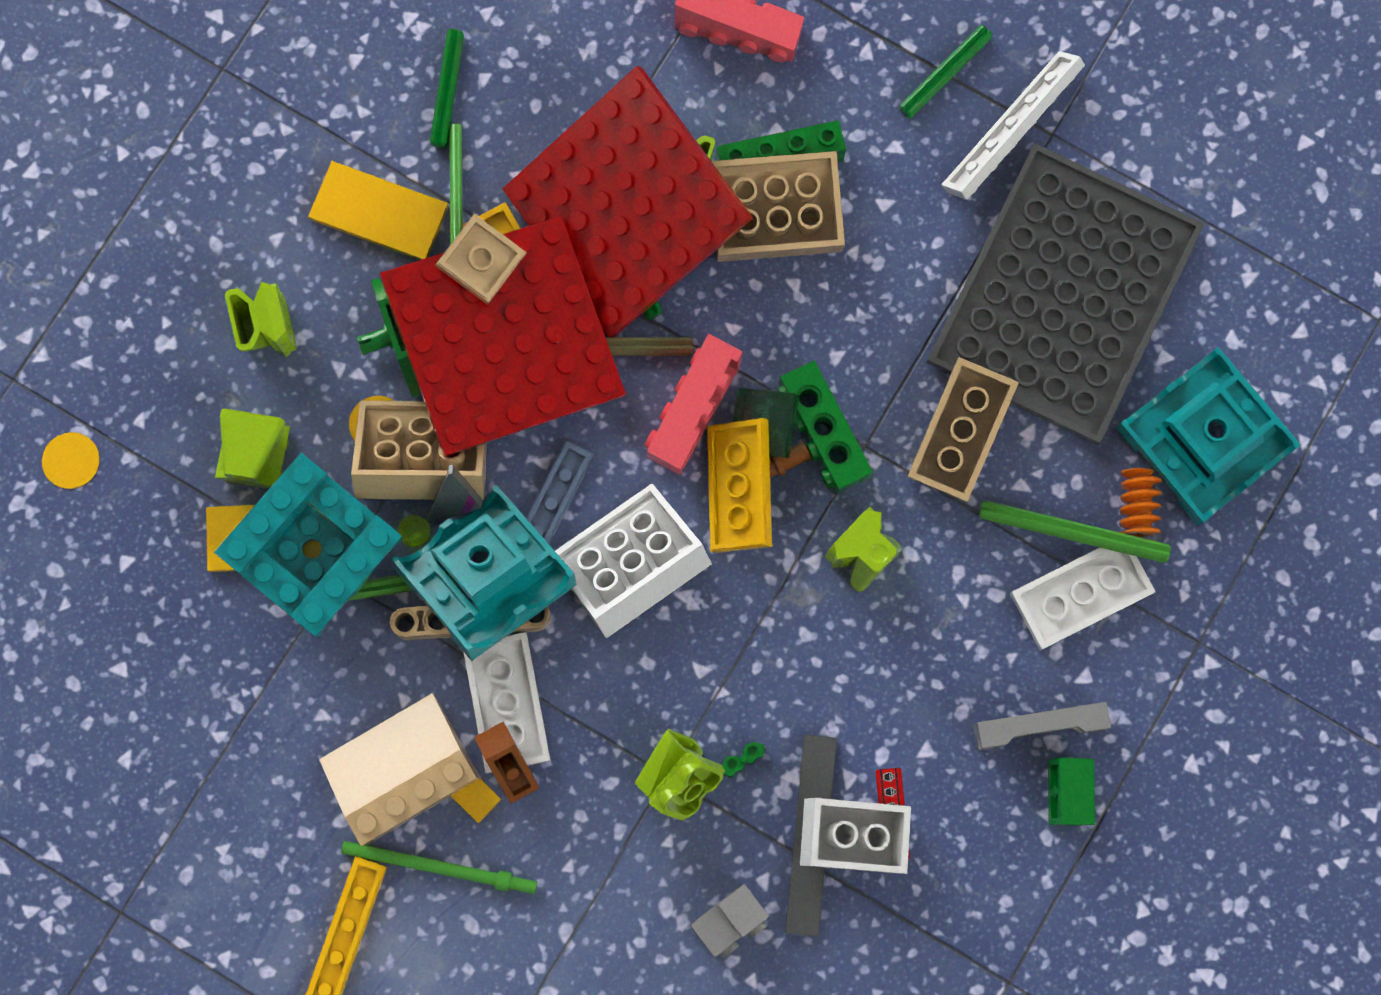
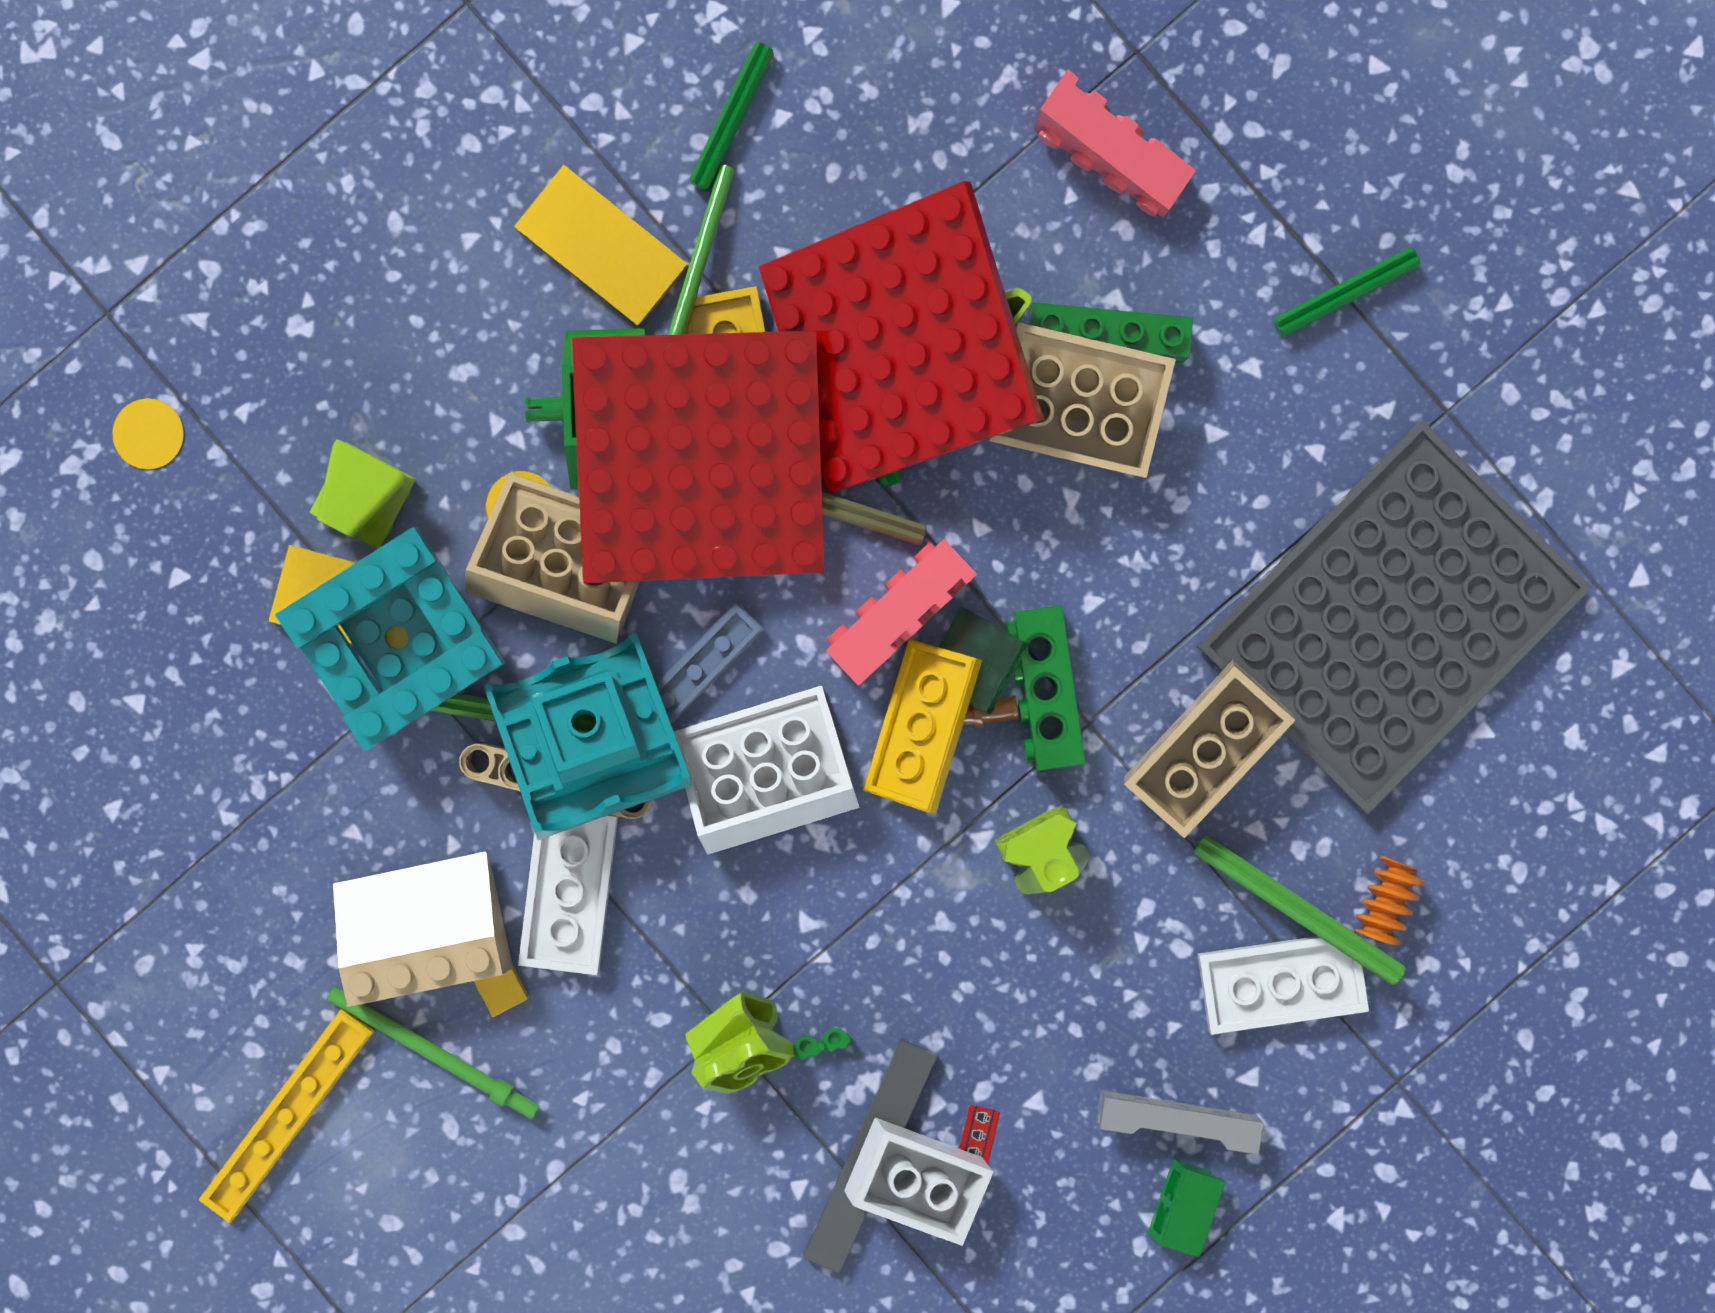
camera: 25 degrees right, 10 degrees up
(261, 321) = (416, 343): lime piece -> none
(414, 530) = (523, 652): clear neon green plate -> none
(453, 497) = (580, 632): dark grey tile -> none
(480, 259) = (699, 358): tan tile -> none
(506, 762) = (544, 964): dark orange slope -> none
(730, 920) = (744, 1226): light grey brick -> none
(1013, 125) = (1405, 387): white plate -> none
(1205, 394) = (1500, 802): teal piece -> none

